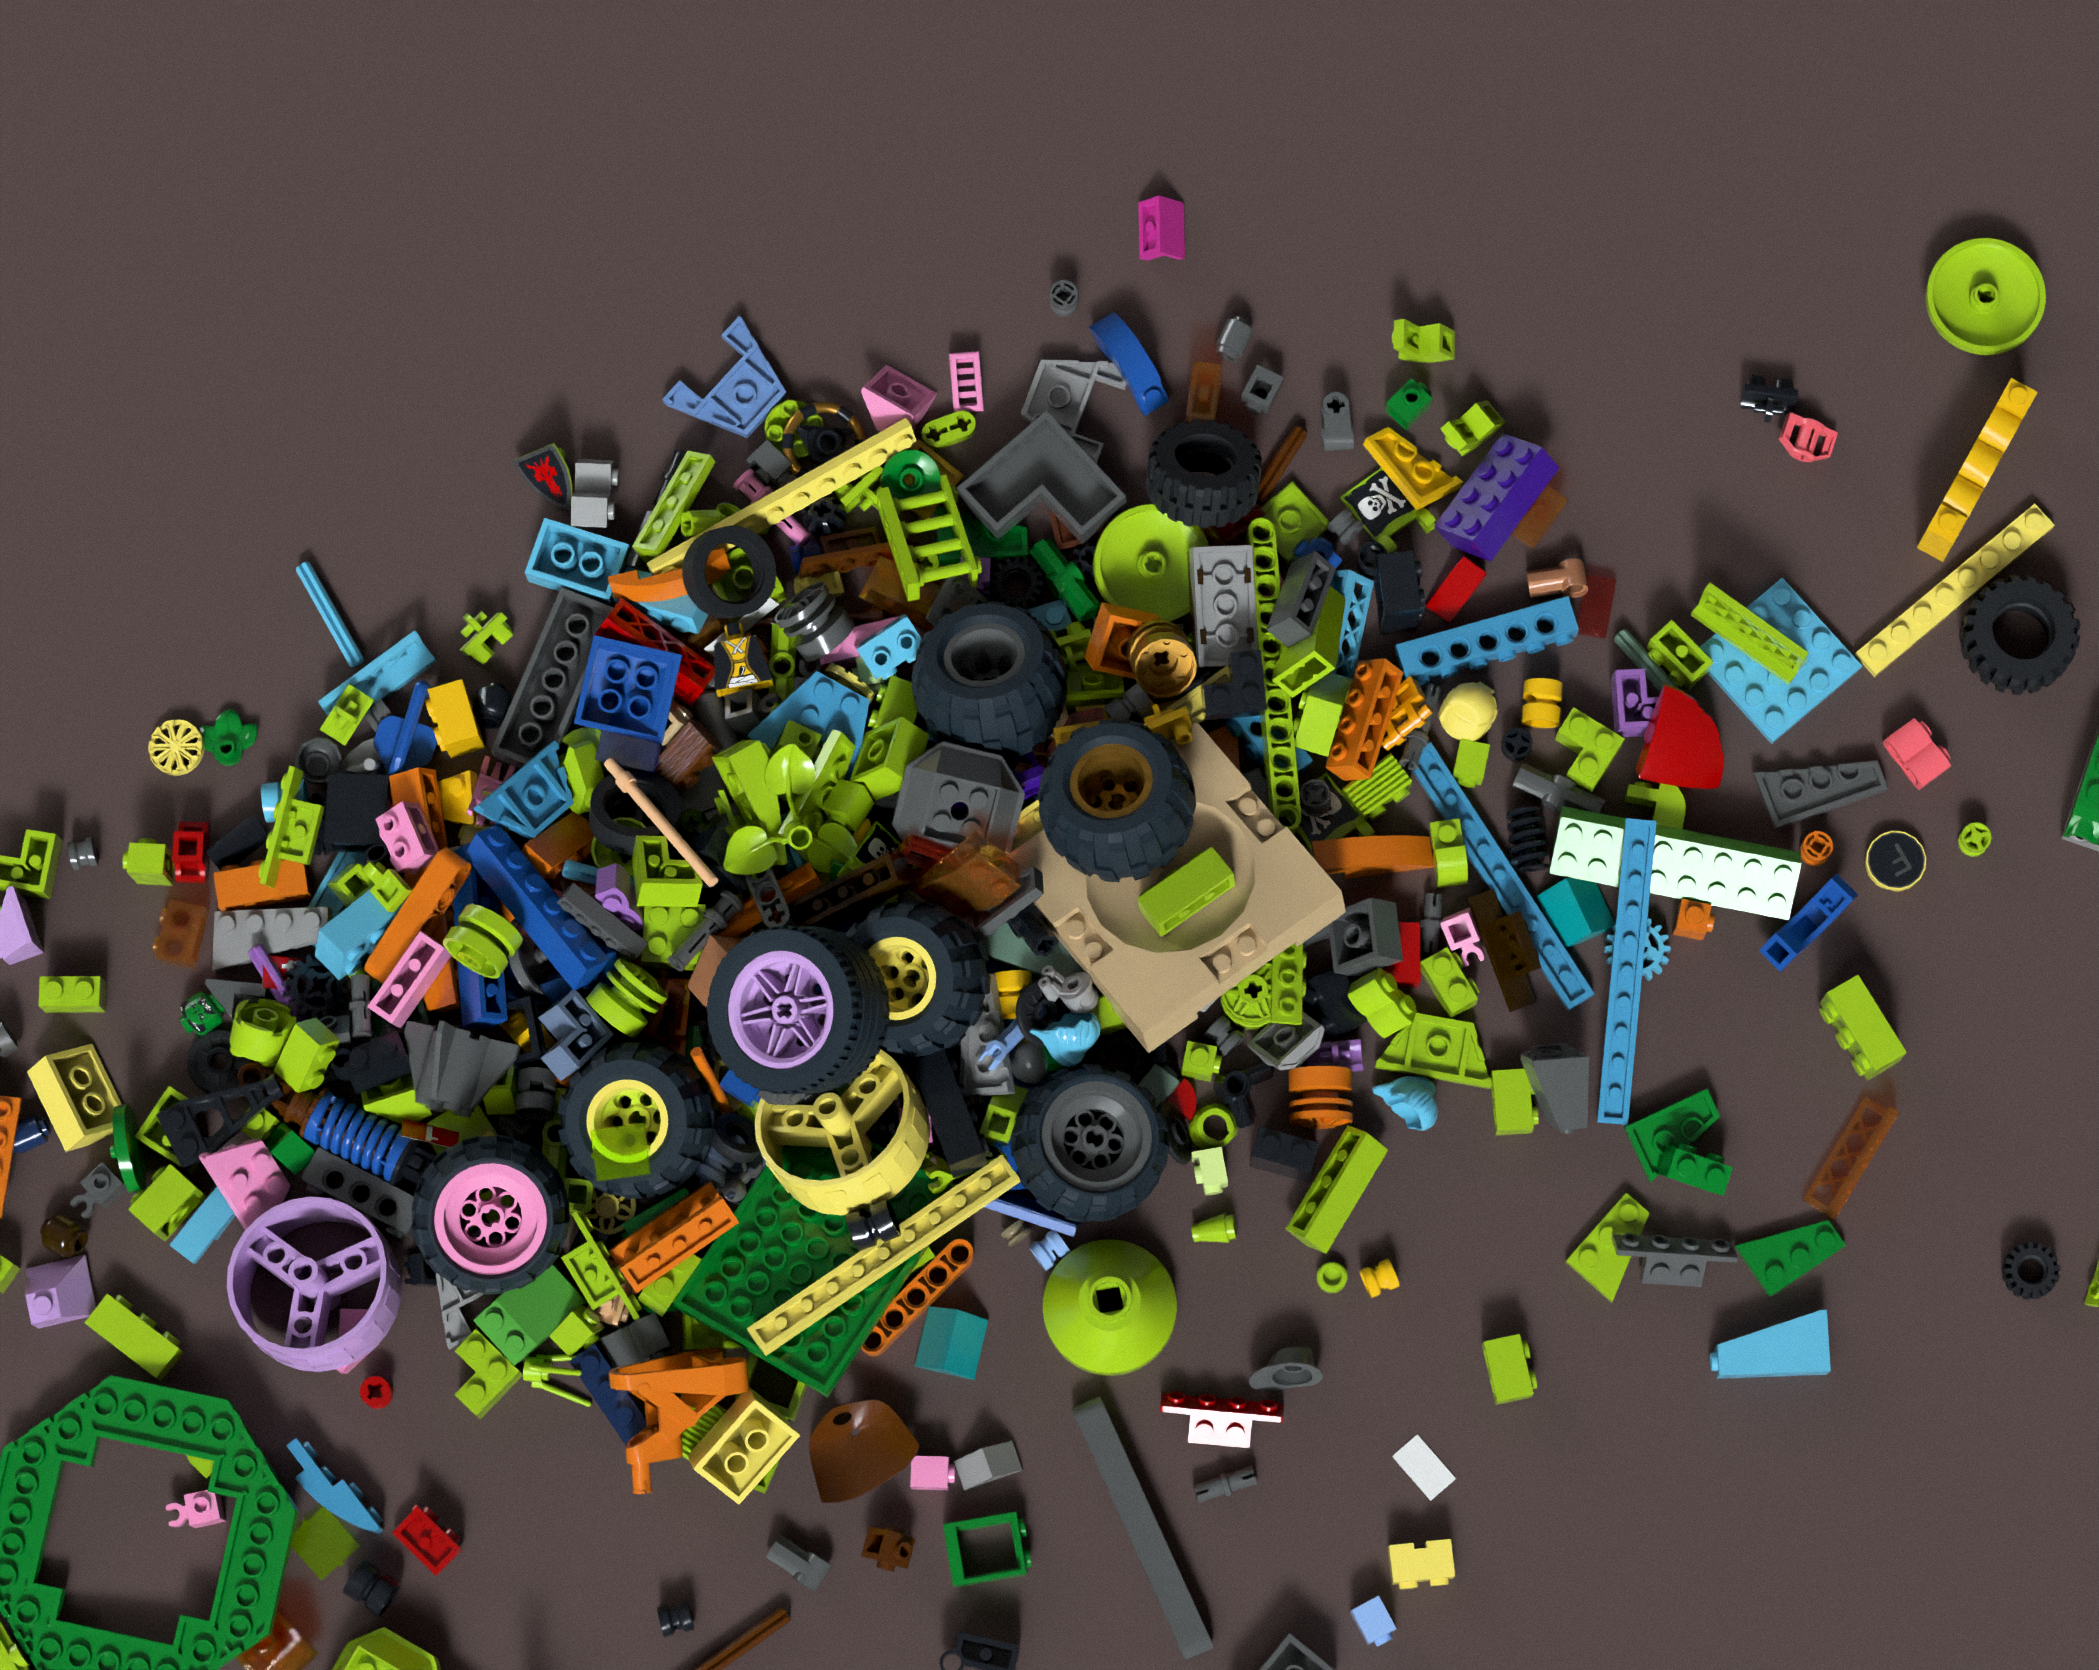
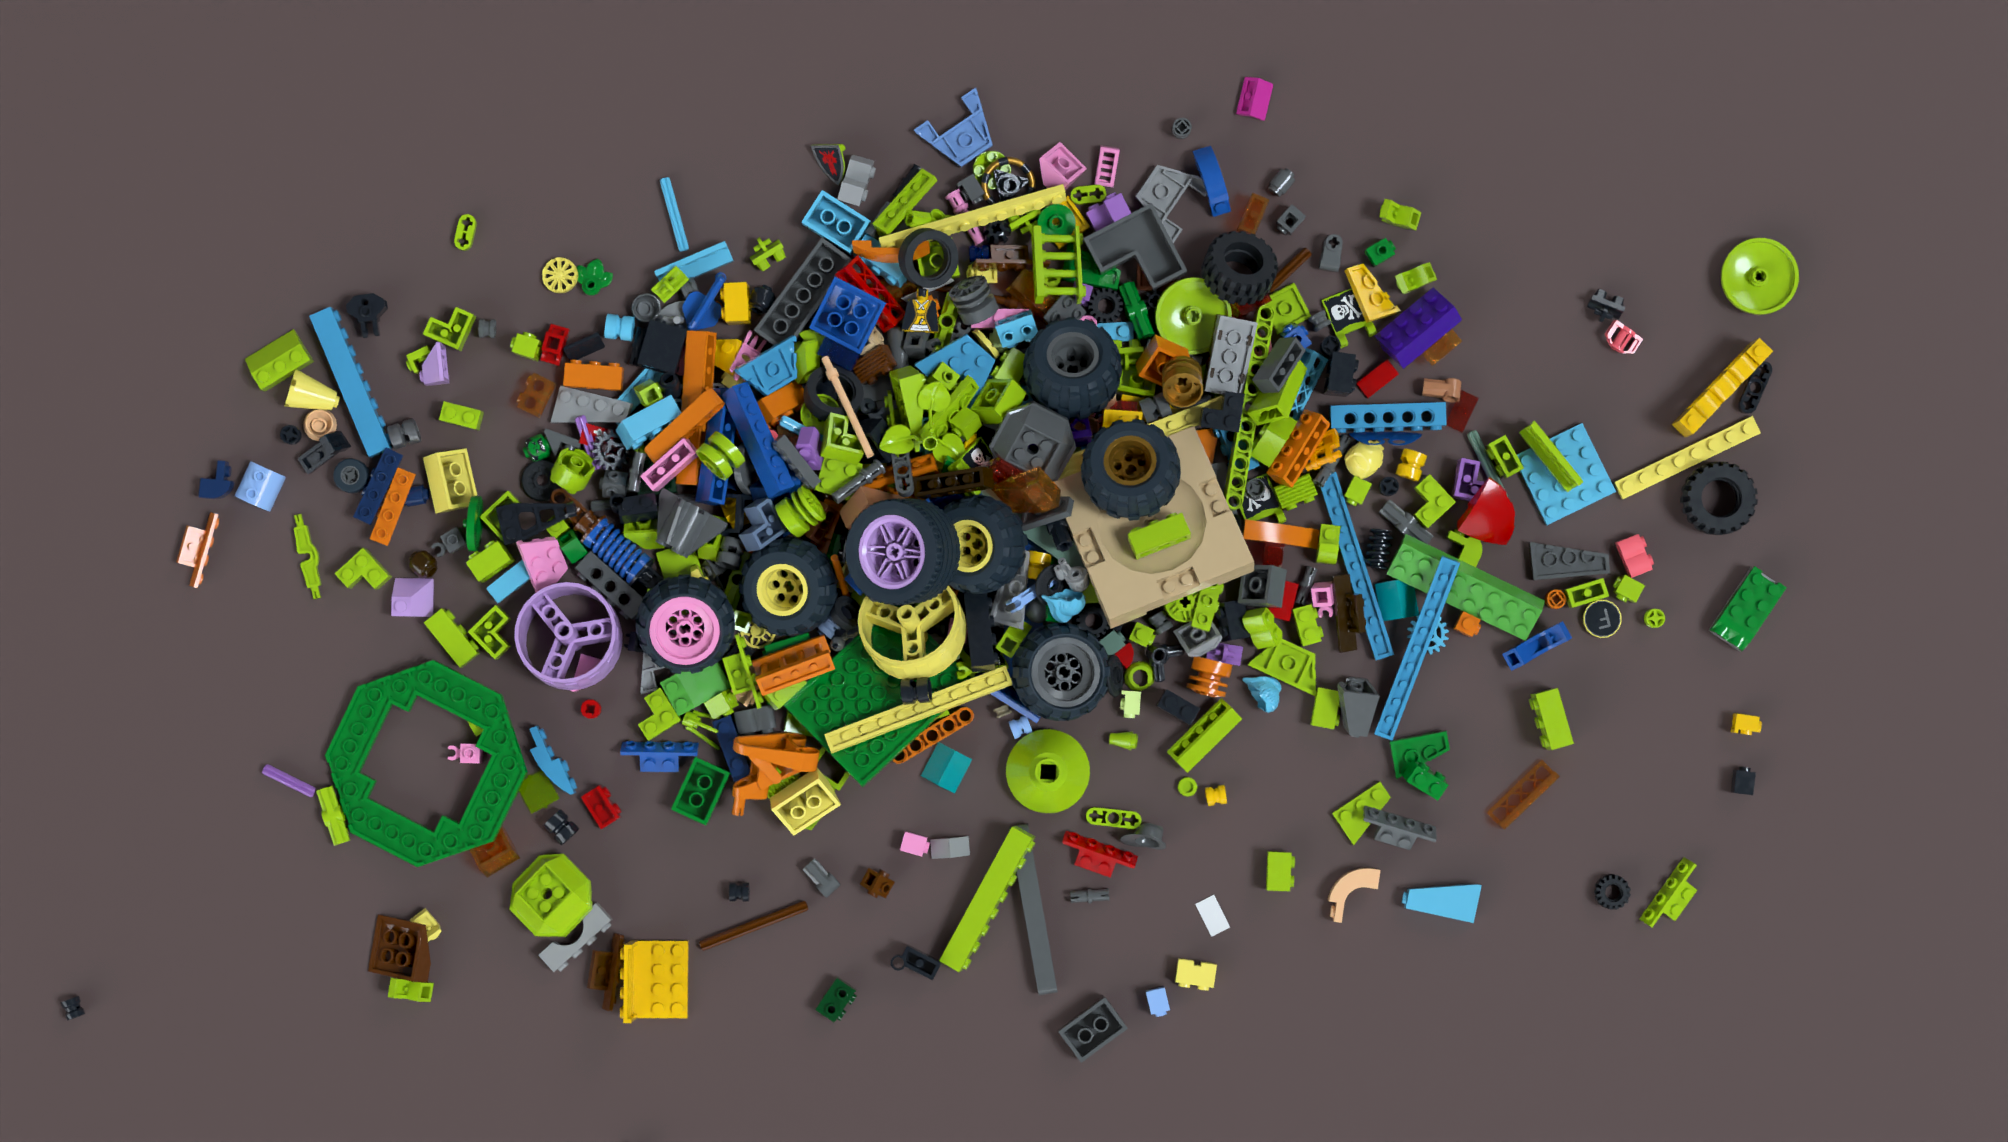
camera: 15 degrees right, 10 degrees up
(25, 719) = (470, 233): none -> lime beam
(186, 1310) = (487, 630): none -> lime brick
(293, 830) = (620, 351): lime bracket -> none
(306, 1055) = (596, 494): lime brick -> none
(389, 886) = (670, 404): lime plate -> none
(407, 837) = (689, 374): bright pink brick -> none
(429, 1133) = (660, 560): red sticker -> none
(500, 1438) = (659, 755): none -> blue bracket
(578, 1473) = (701, 790): none -> green brick
(620, 1152) = (773, 608): clear neon green piece -> none
(855, 1465) = (874, 826): reddish brown piece -> none
(954, 1554) = (958, 892): green window -> none
(990, 436) = (1110, 211): none -> medium lavender brick
(1066, 1527) = (987, 898): none -> lime brick
(1171, 724) = (1174, 423): yellow hips -> none
(1208, 1364) = (1128, 815): none -> lime beam
(1367, 882) = (1272, 554): none -> clear red slope
(1501, 668) = (1364, 437): none -> blue piece
(1635, 1348) = (1348, 882): none -> light nougat arch
(1789, 1255) = (1468, 844): green wing -> none
(1860, 826) = (1586, 593): none -> lime brick
(1921, 805) = (1627, 589): none -> lime brick
(2031, 483) = (1754, 402): none -> black beam

